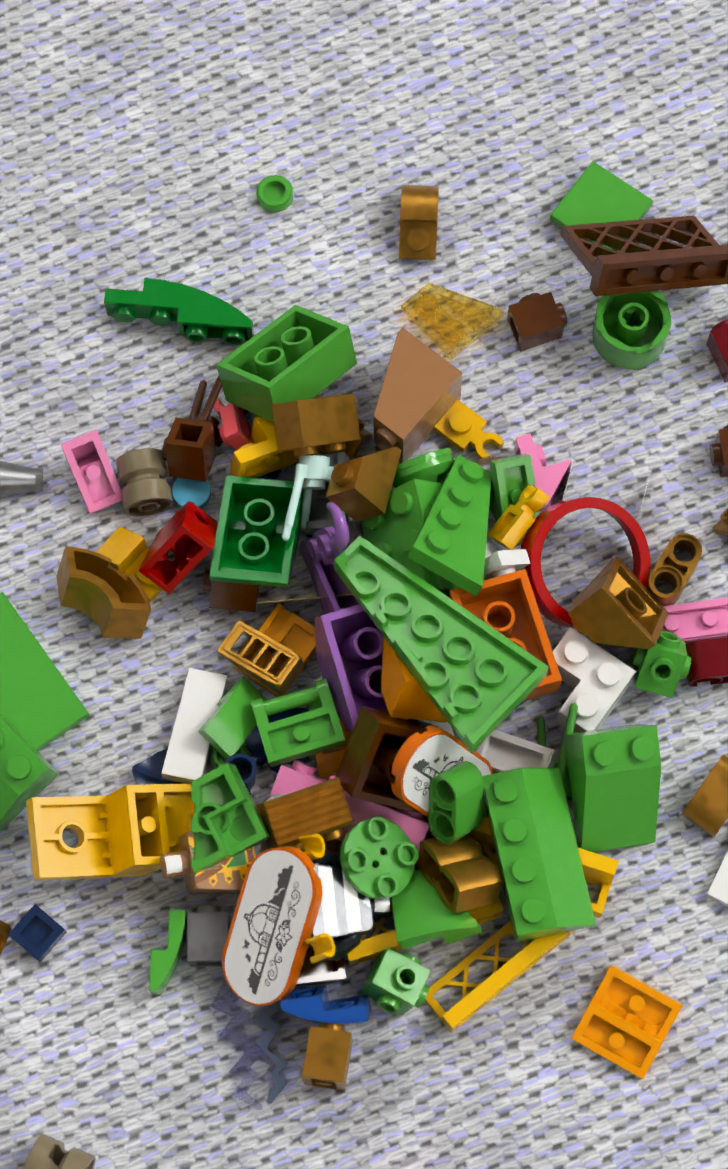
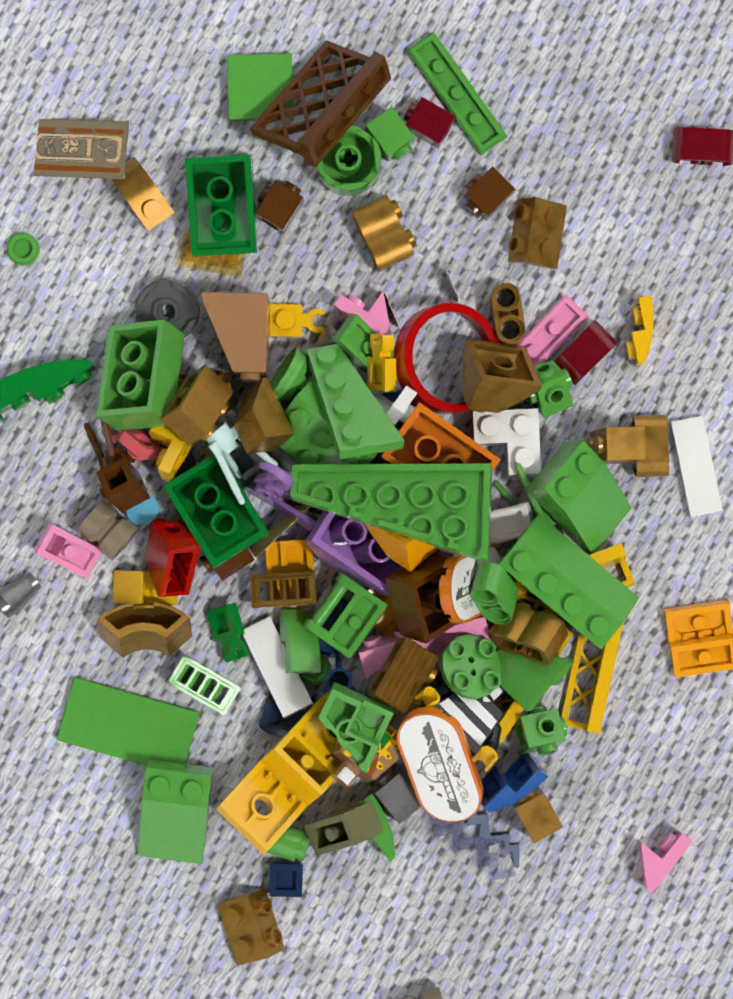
camera: 40 degrees left, 15 degrees up
(68, 900) = (291, 844): none -> bright green brick
(103, 659) = (175, 680): none -> slope
(132, 920) = (344, 828): none -> olive brick
(177, 653) = (226, 627): none -> green plate
(380, 331) = (169, 292): none -> dark grey plate
(397, 145) = (81, 148): none -> sticker
(485, 276) = (221, 205): none -> green slope
(613, 414) = (383, 233): none -> pearl gold brick
(688, 763) = (618, 444): none -> pearl gold brick
(689, 334) = (391, 135): none -> bright green brick

